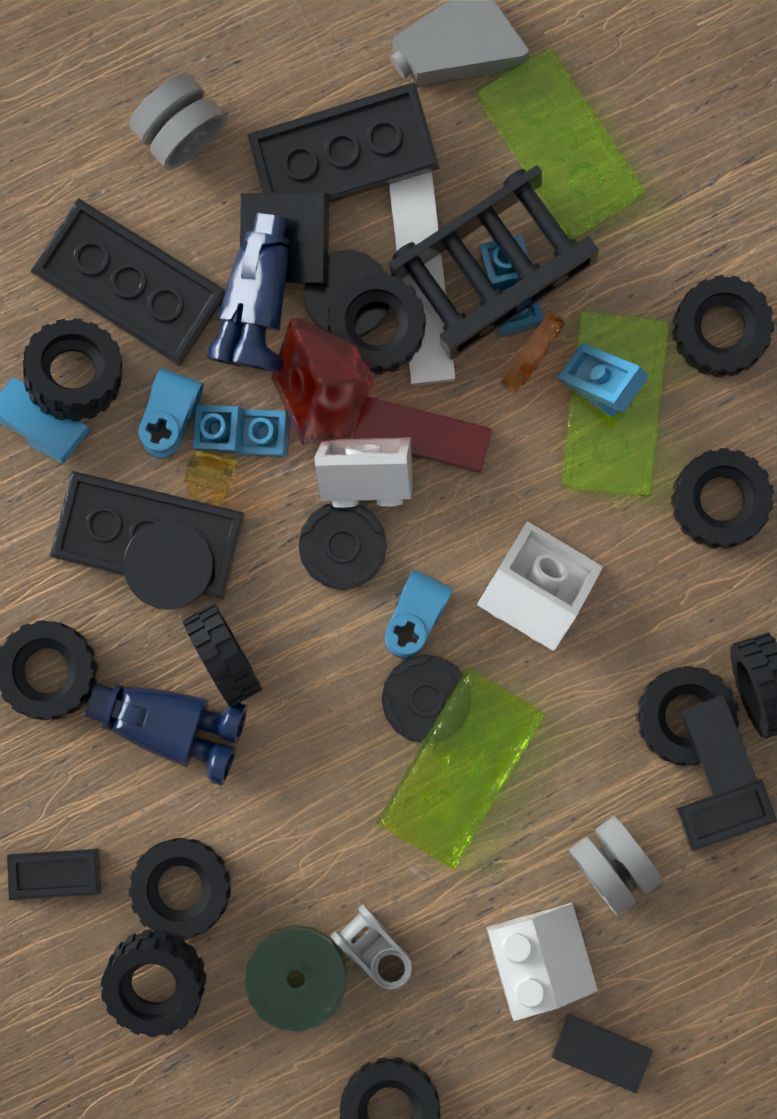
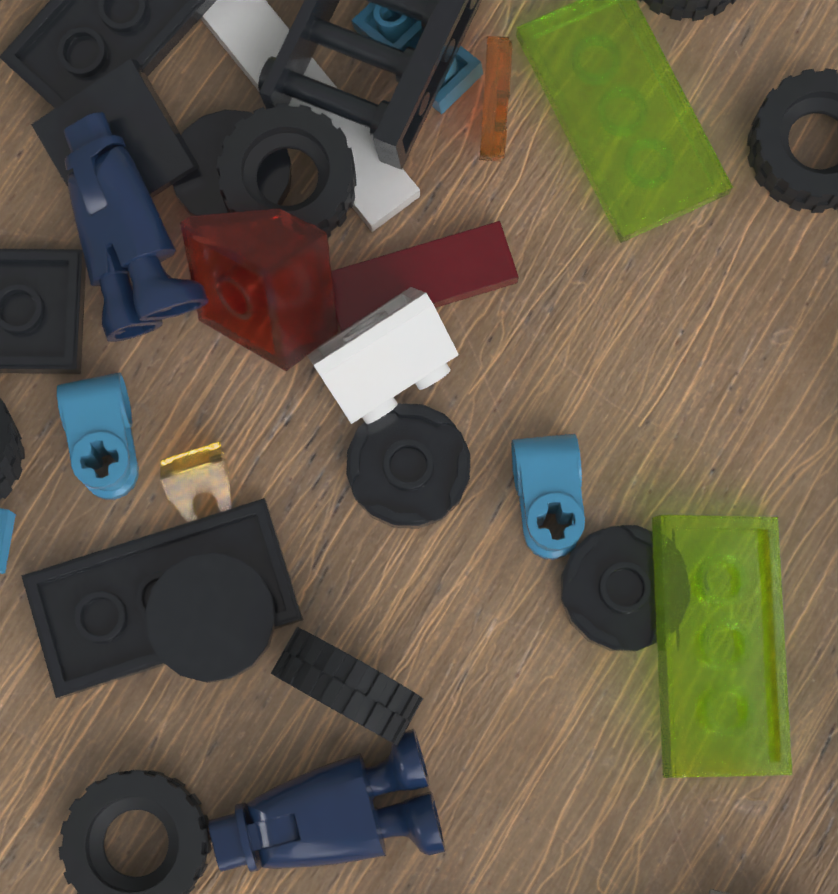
camera: 30 degrees left, 5 degrees down
(241, 431) = (201, 404): dark azure slope -> none
(540, 586) = (677, 370): white slope -> none
(602, 378) = (597, 80): dark azure slope -> none

